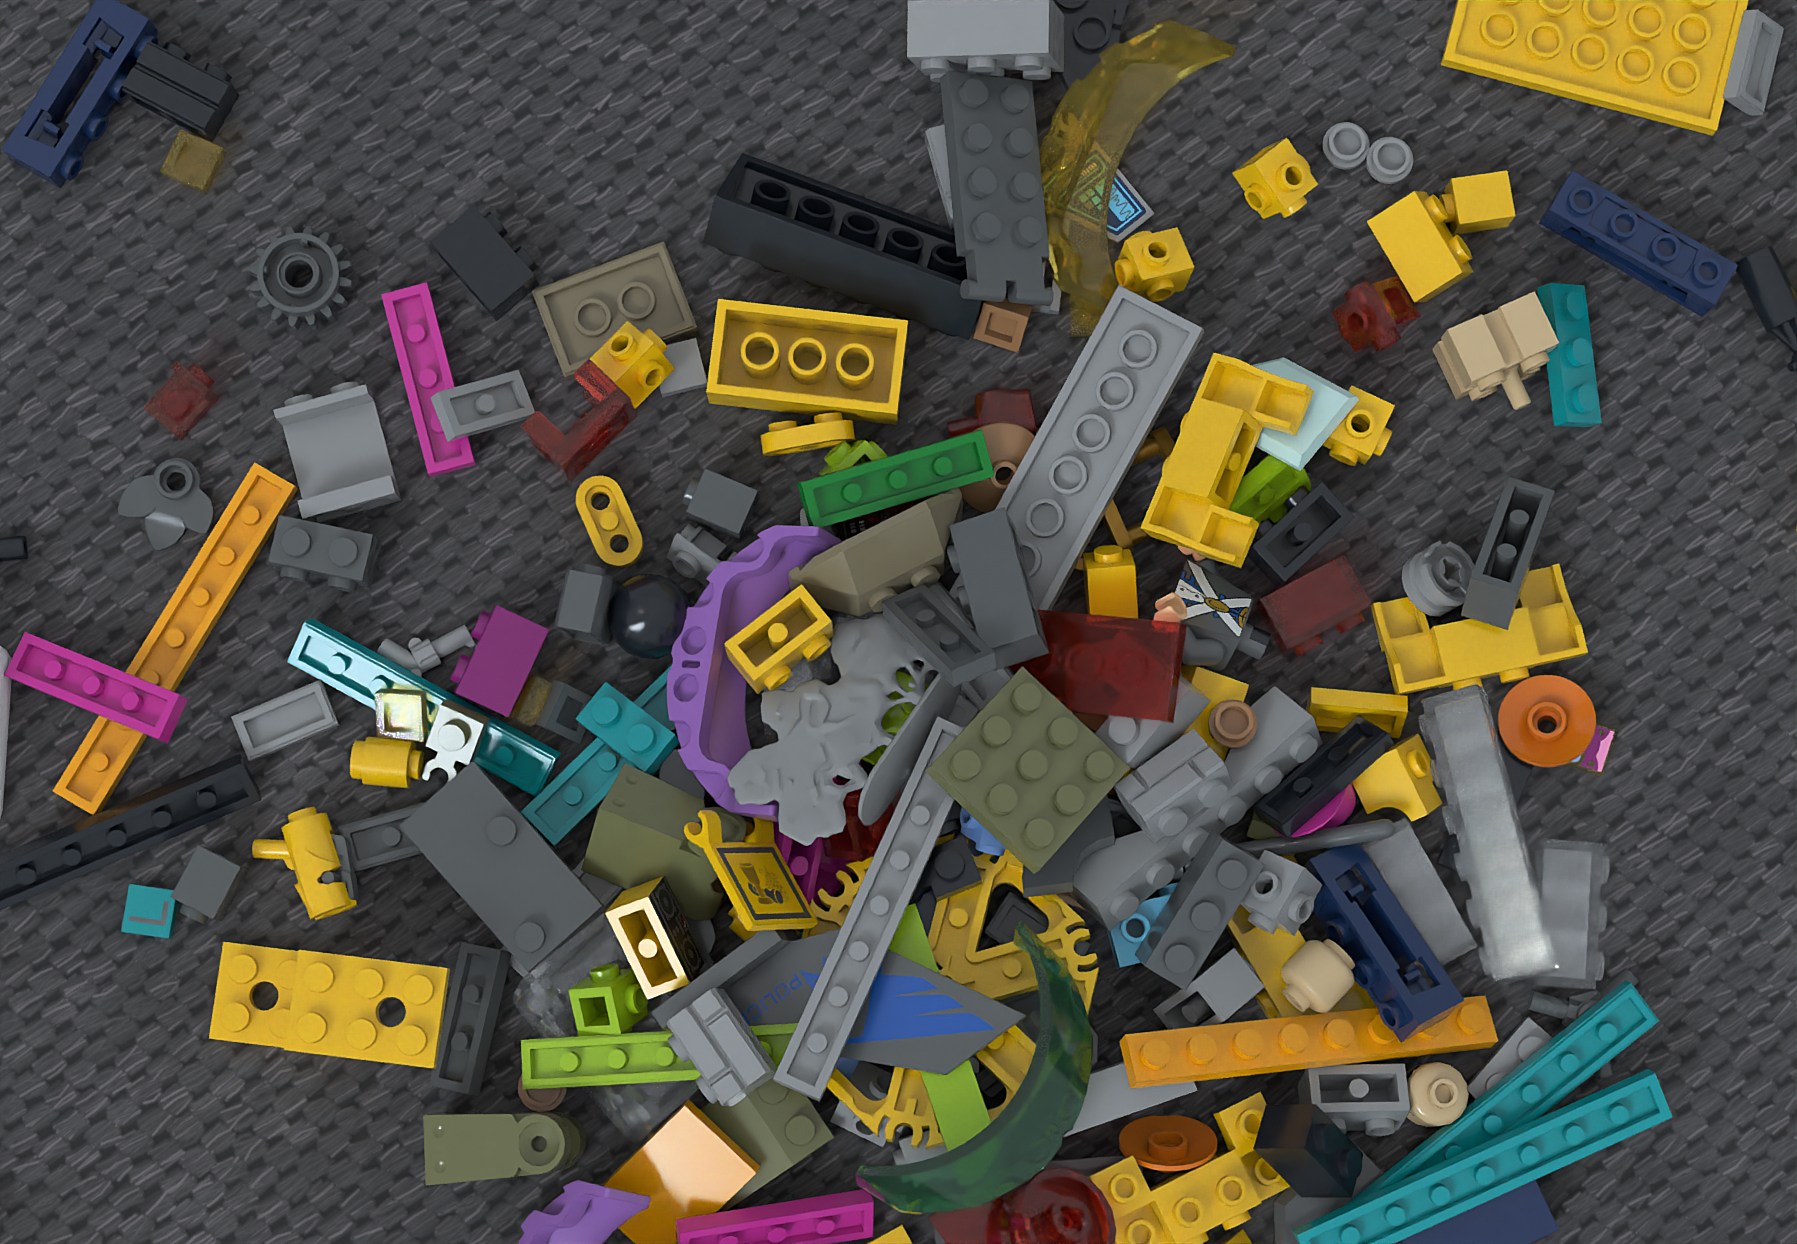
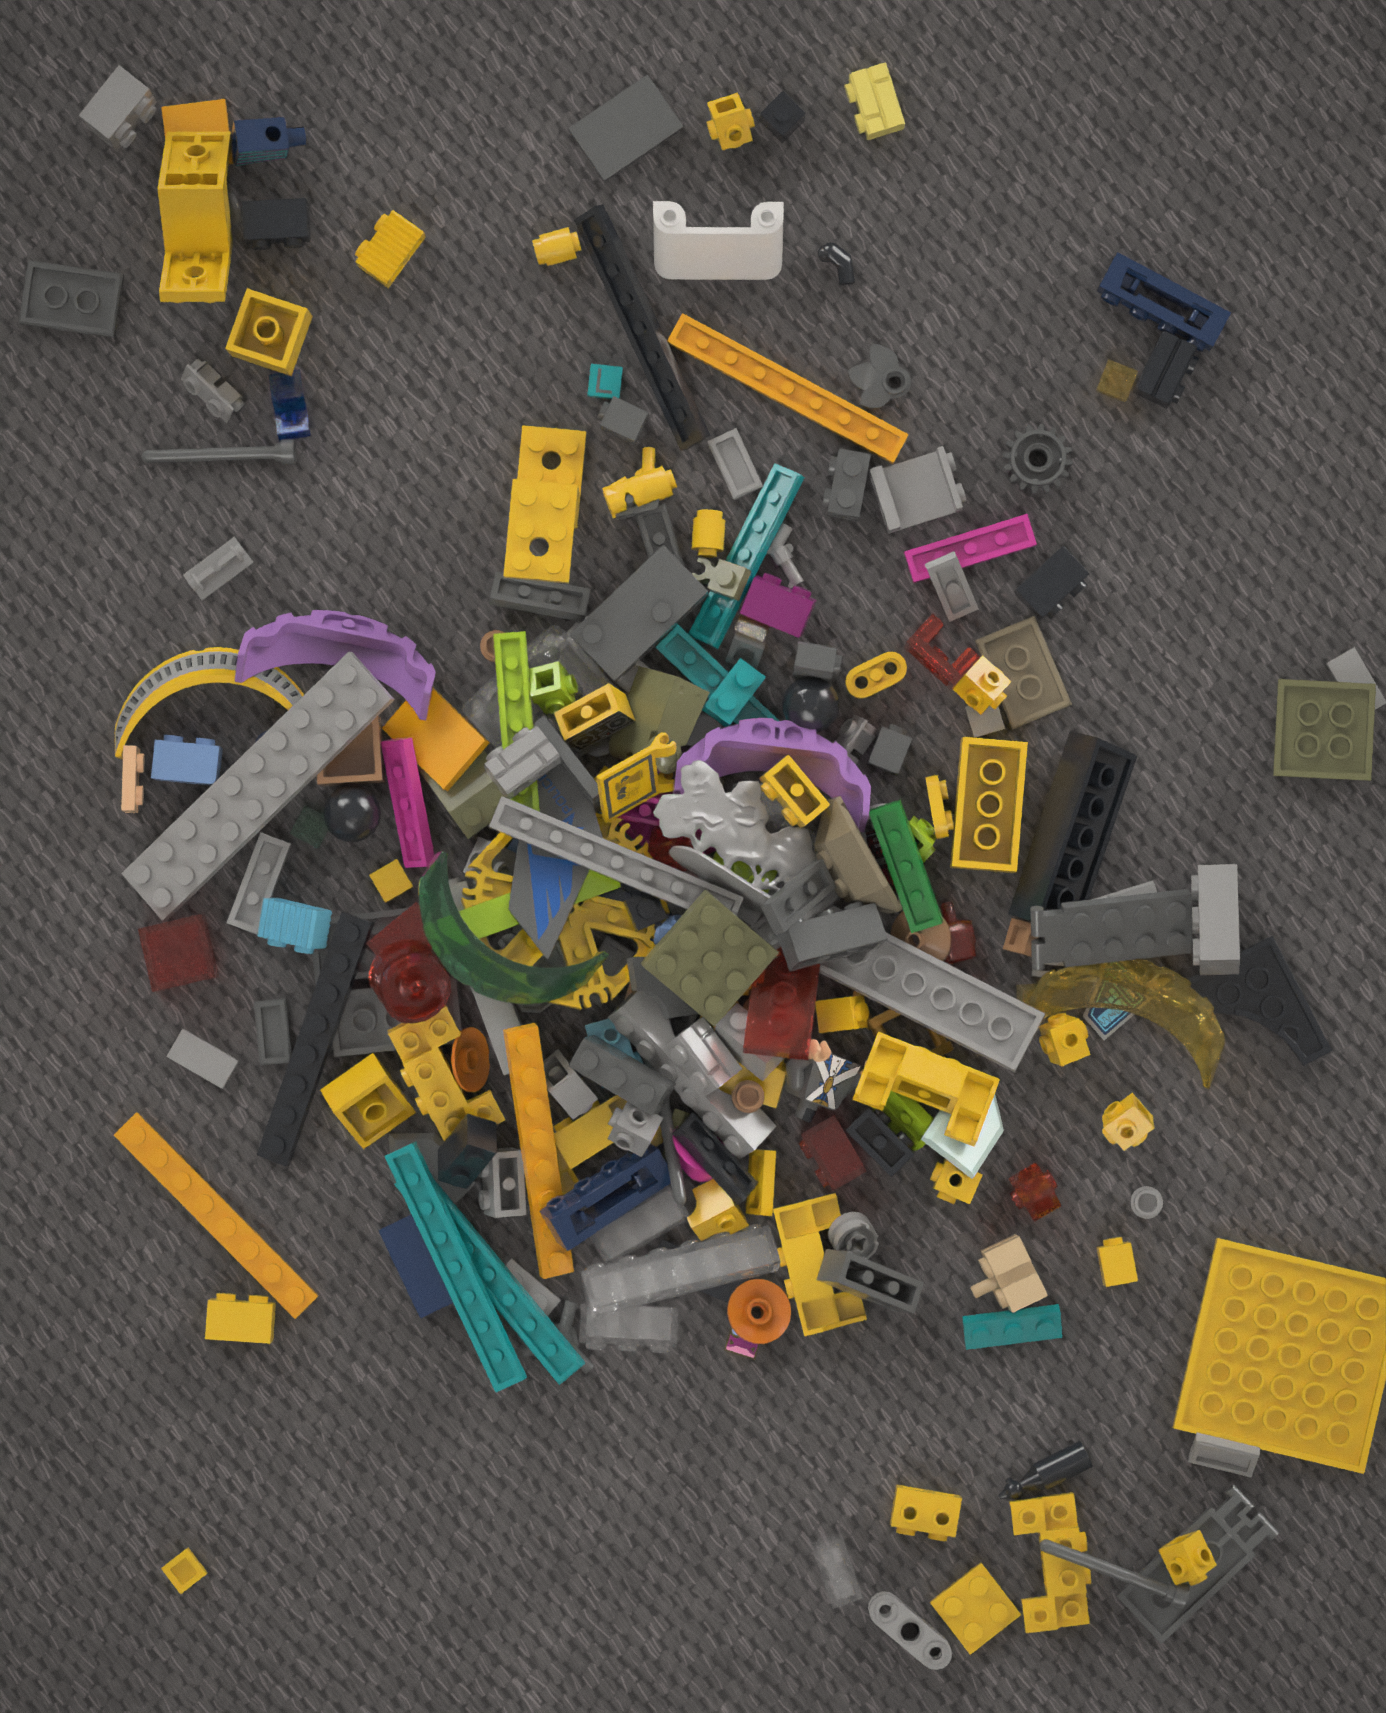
camera: 95 degrees right, 5 degrees up
(96, 687) = (751, 338): dark pink plate -> none
(182, 399) = (951, 383): clear red bracket -> none
(401, 714) = (740, 541): clear yellow tile -> none
(499, 1145) = (457, 620): olive piece -> none
(1317, 976) = (581, 1154): tan head -> none
(1345, 145) = (1156, 1171): light grey plate -> none
(1421, 245) = (1084, 1223): yellow brick -> none
(1436, 1094) = (507, 1236): tan head -> none
(1638, 244) = (1091, 1373): dark blue brick -> none

